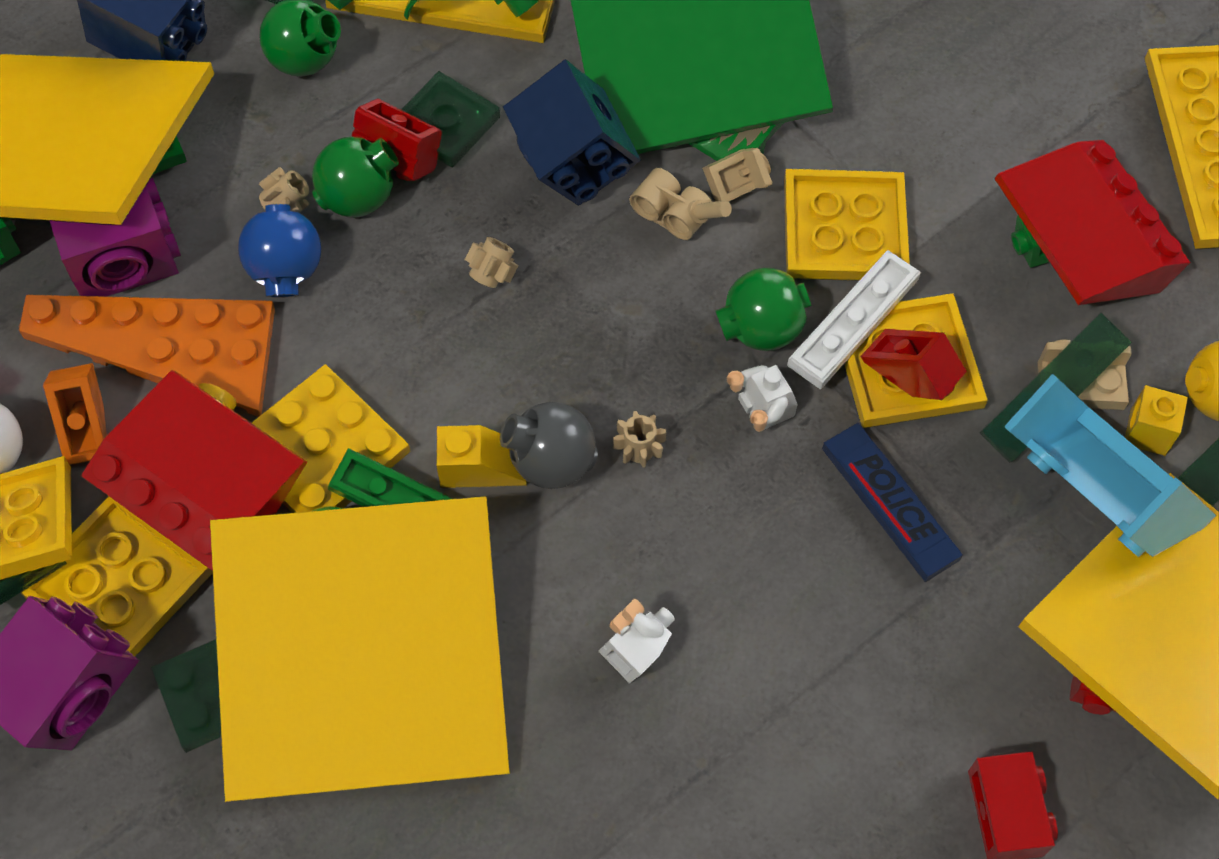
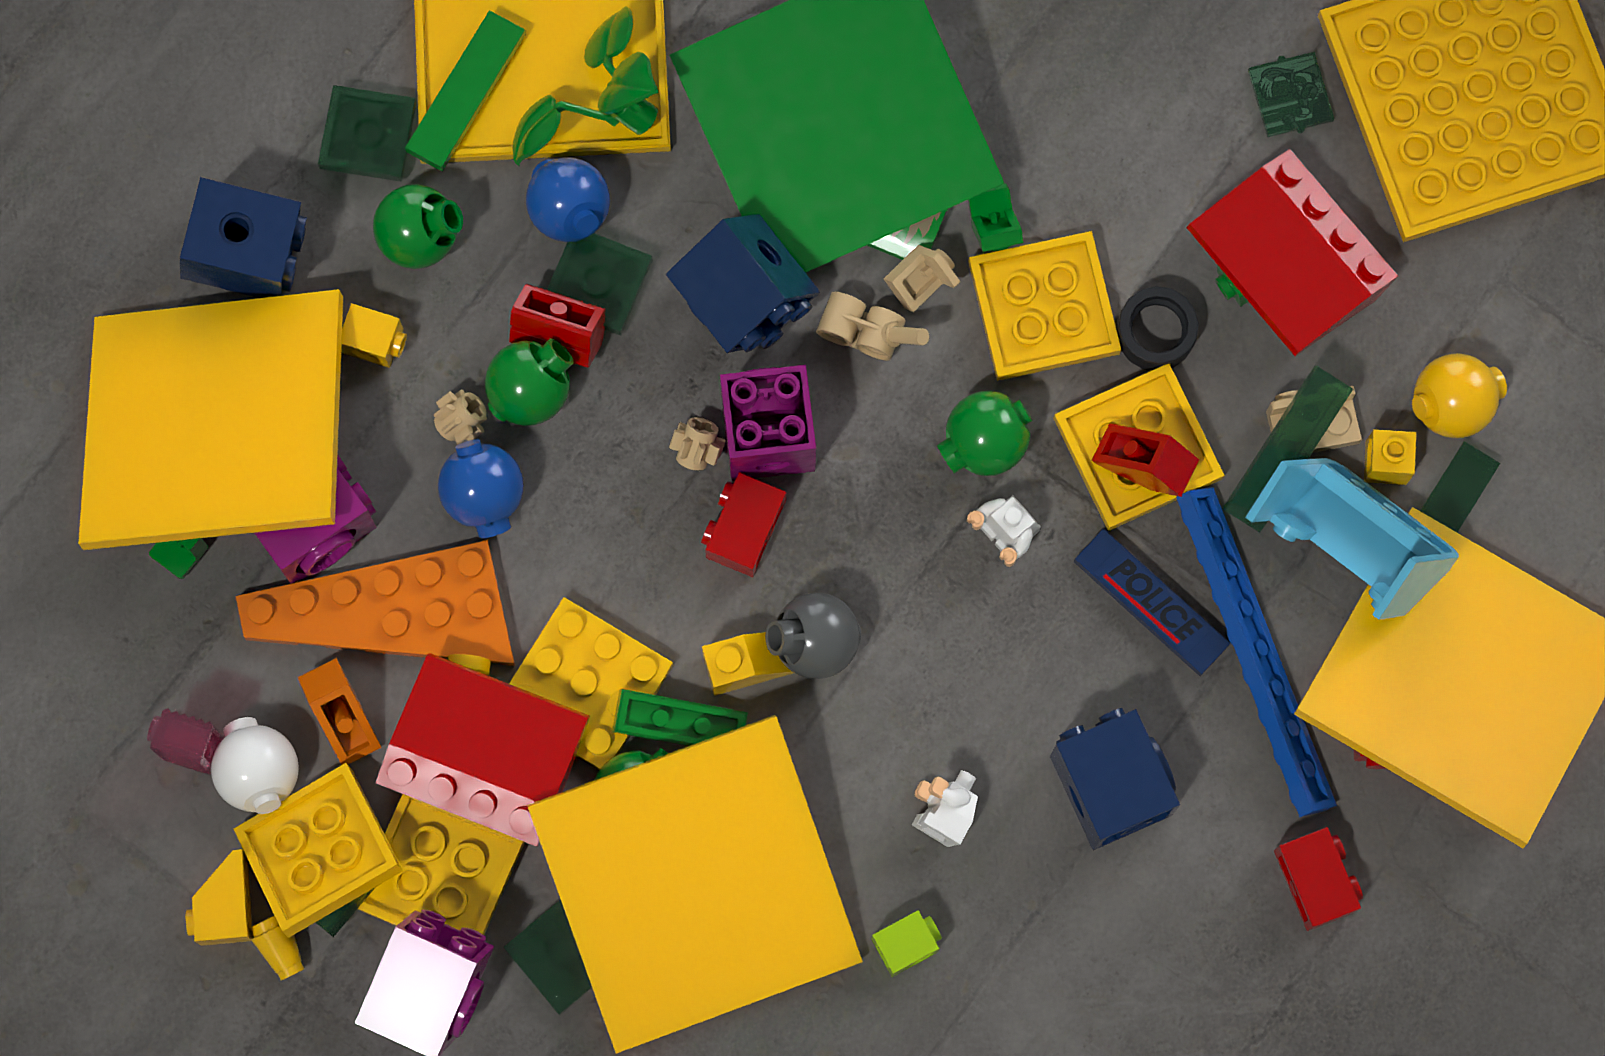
camera: 15 degrees left, 15 degrees up
(230, 116) = (372, 335): none -> yellow brick
(438, 45) = (567, 199): none -> blue brick
(514, 340) = (744, 524): none -> red brick
(559, 250) = (768, 422): none -> magenta brick
(560, 764) = (907, 942): none -> lime brick
(637, 450) = (891, 612): tan gear -> none
(816, 143) = (995, 220): none -> green bracket
(817, 648) = (1115, 777): none -> dark blue brick
(853, 319) = (1077, 419): white tile -> none
(958, 241) = (1162, 297): none -> black tyre
(990, 583) = (1256, 651): none -> blue plate
(1109, 113) = (1291, 94): none -> clear green piece

